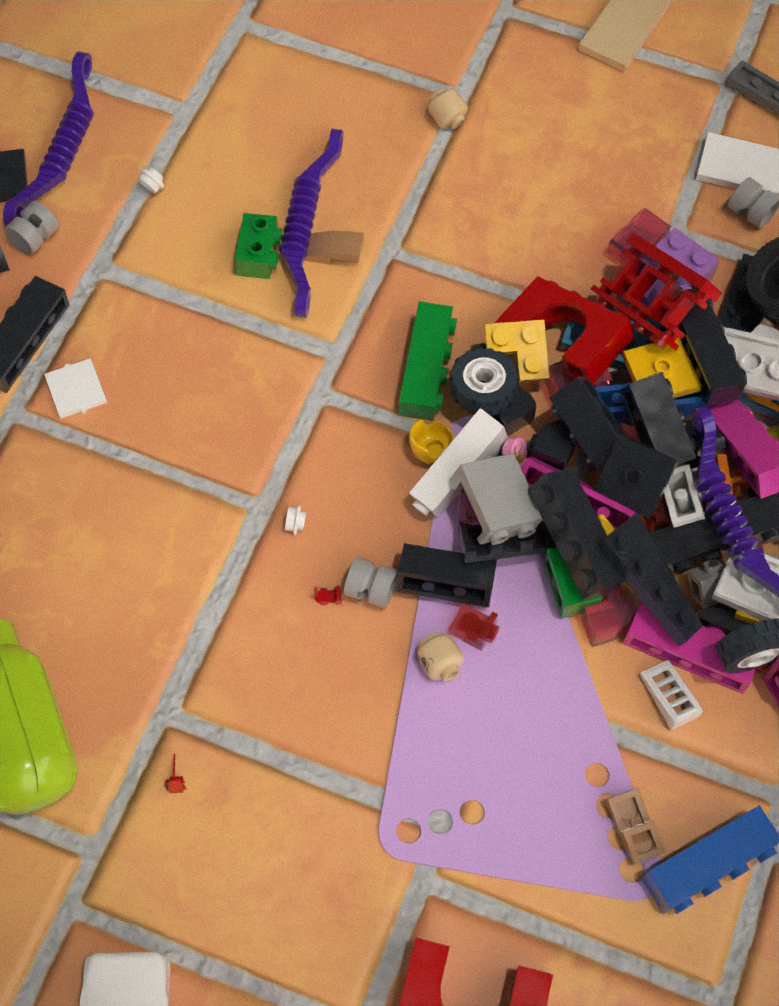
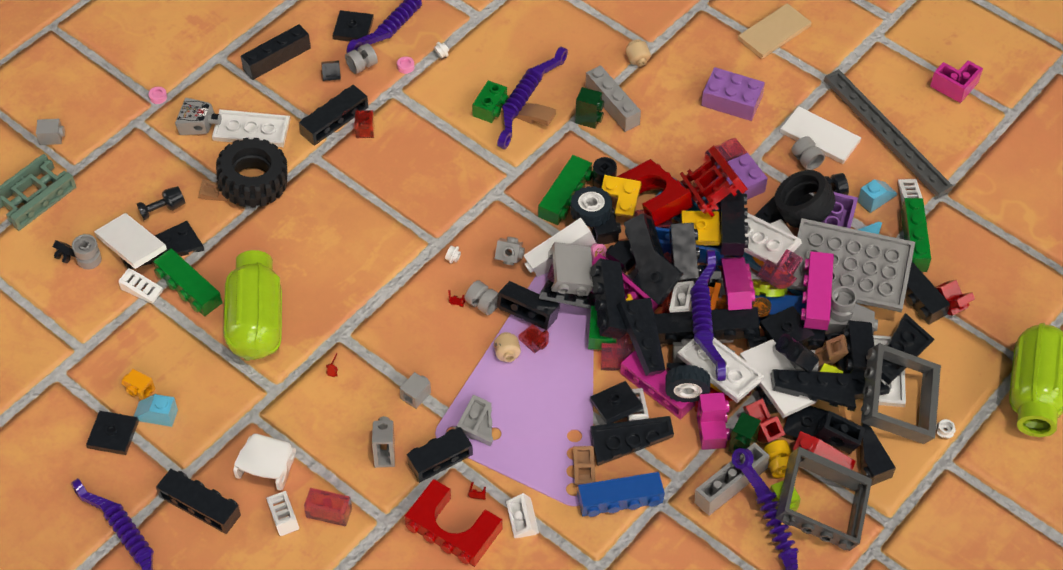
camera: 20 degrees right, 10 degrees down
(75, 336) = (364, 123): none -> clear red brick
(75, 388) = (354, 153): white piece -> none
(103, 219) = (405, 65): none -> bright pink tile
(309, 891) = (383, 434): none -> light grey torso
(324, 778) = (415, 390): none -> light grey brick
(382, 489) = (503, 253): none -> light grey brick
(404, 882) = (439, 454): none -> black brick
(414, 217) = (589, 108): none -> dark green brick
(429, 440) = (546, 230): yellow hair -> none
(440, 191) = (615, 99): none -> light grey brick
(441, 802) = (477, 420): none -> light grey wing
(473, 314) = (602, 167): none -> black wheel
(486, 934) = (473, 493): none -> red piece
(572, 948) = (522, 516): none -> white slope
(610, 137) = (733, 94): none -> medium lavender brick
(644, 702) = (616, 402): none -> black plate
(676, 757) = (628, 437): none -> black wing

